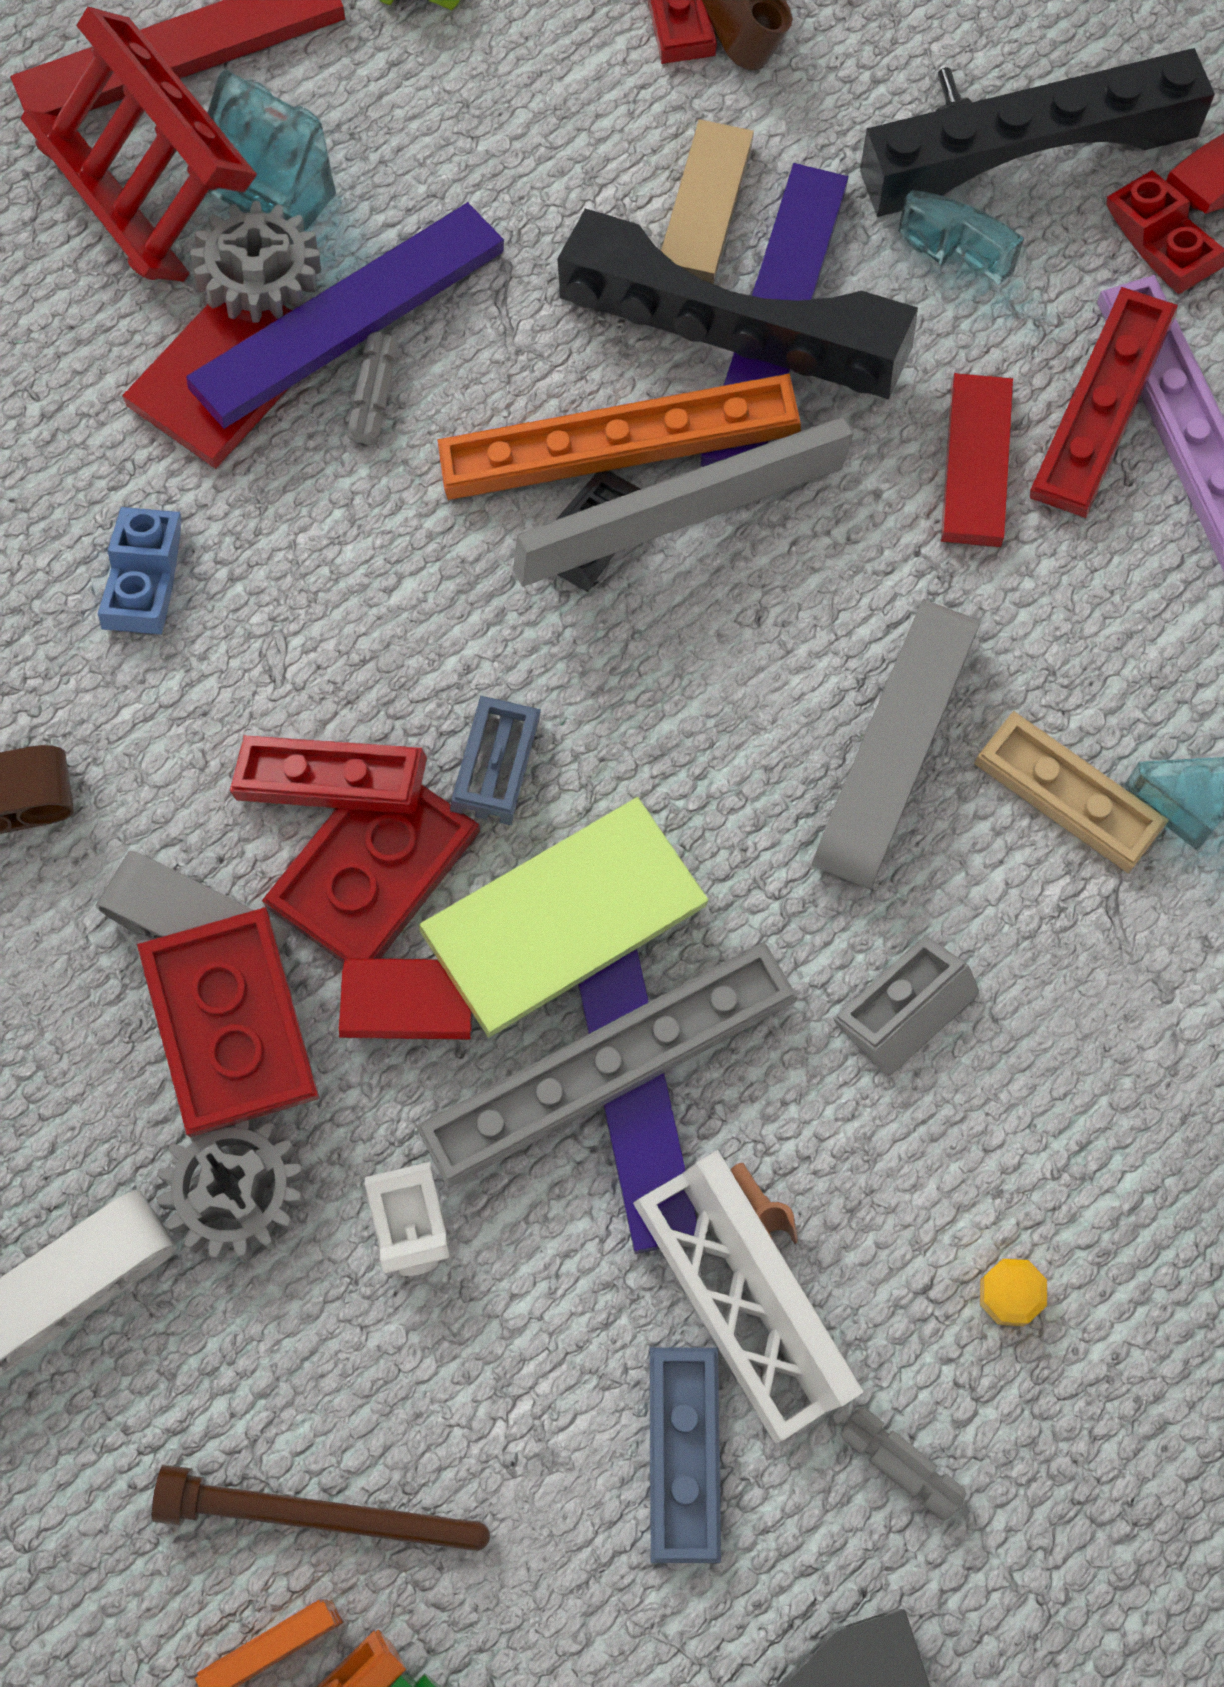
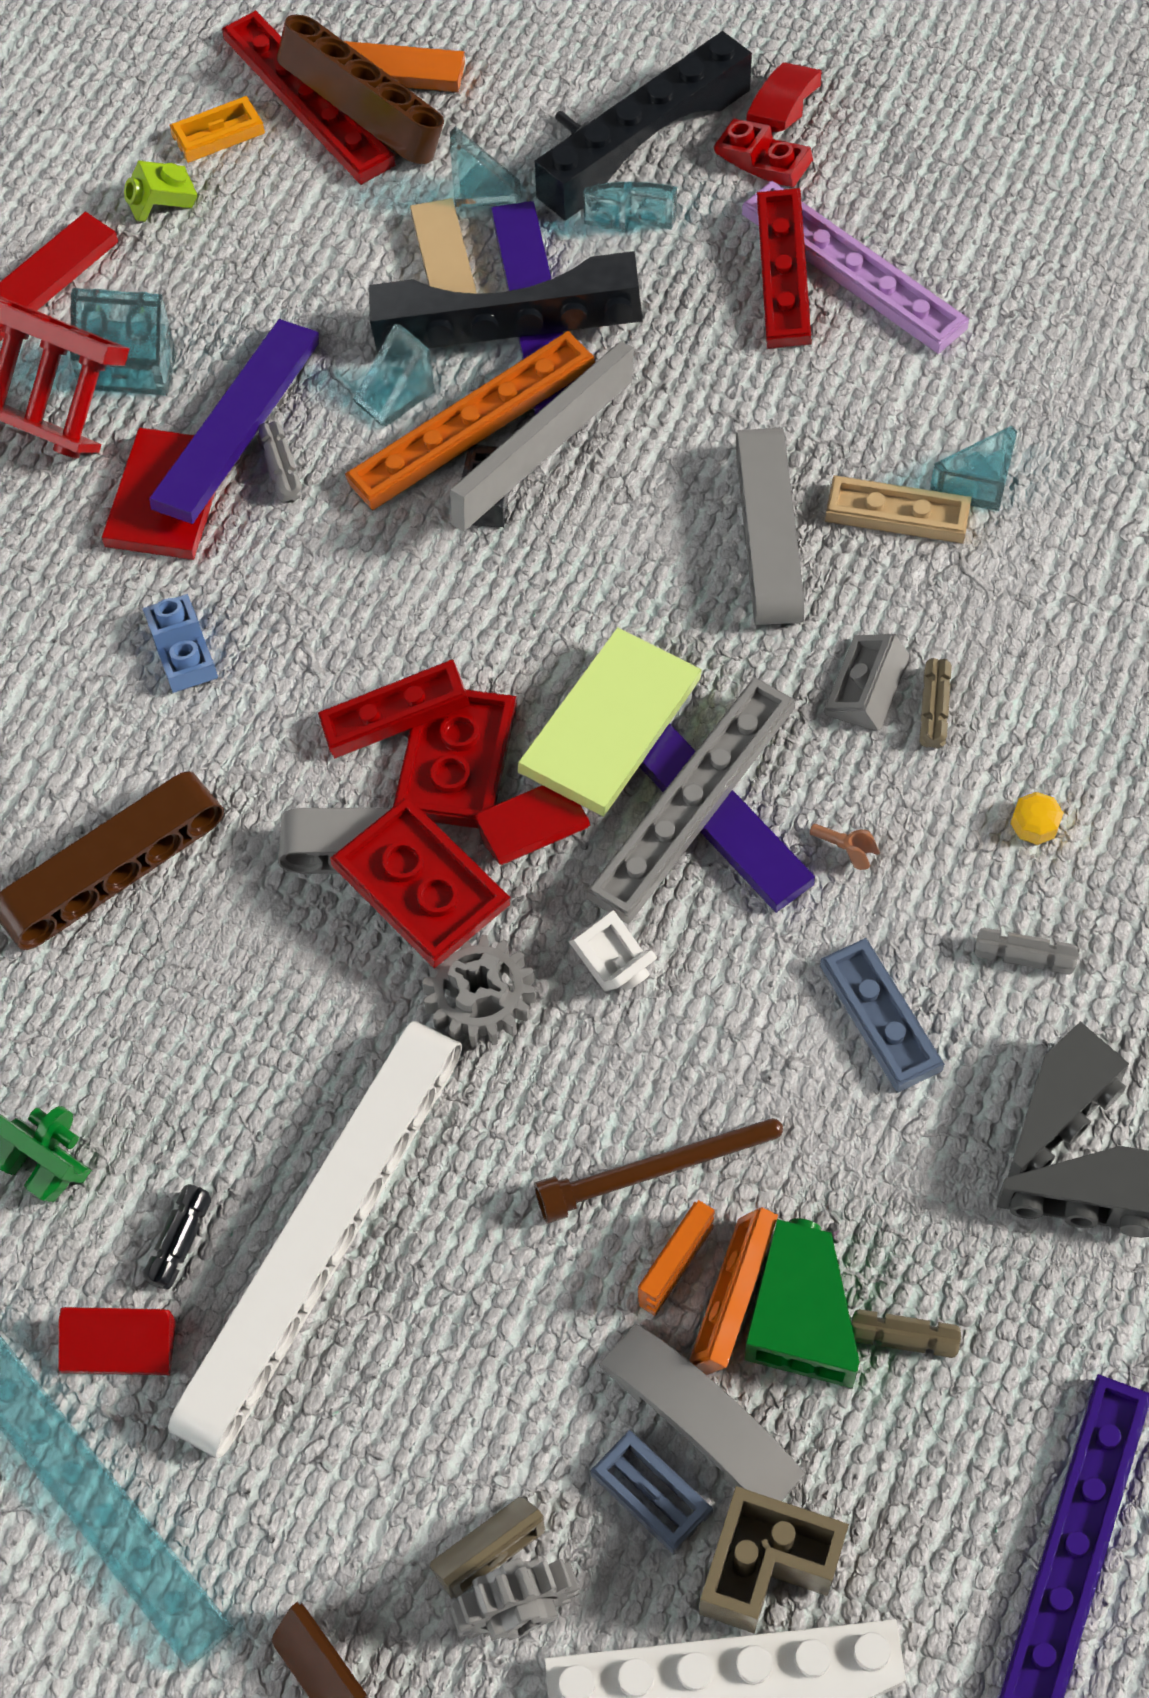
camera: 25 degrees left, 10 degrees down
(255, 261) = (154, 409): light grey gear -> none
(484, 803) = (511, 677): sand blue tile -> none
(557, 344) = (397, 378): none -> clear light blue slope
(767, 1283) = (874, 883): white fence -> none
(796, 115) = (478, 176): none -> clear light blue slope
(973, 1076) = (935, 703): none -> dark tan axle
(977, 460) = (720, 338): red tile -> none

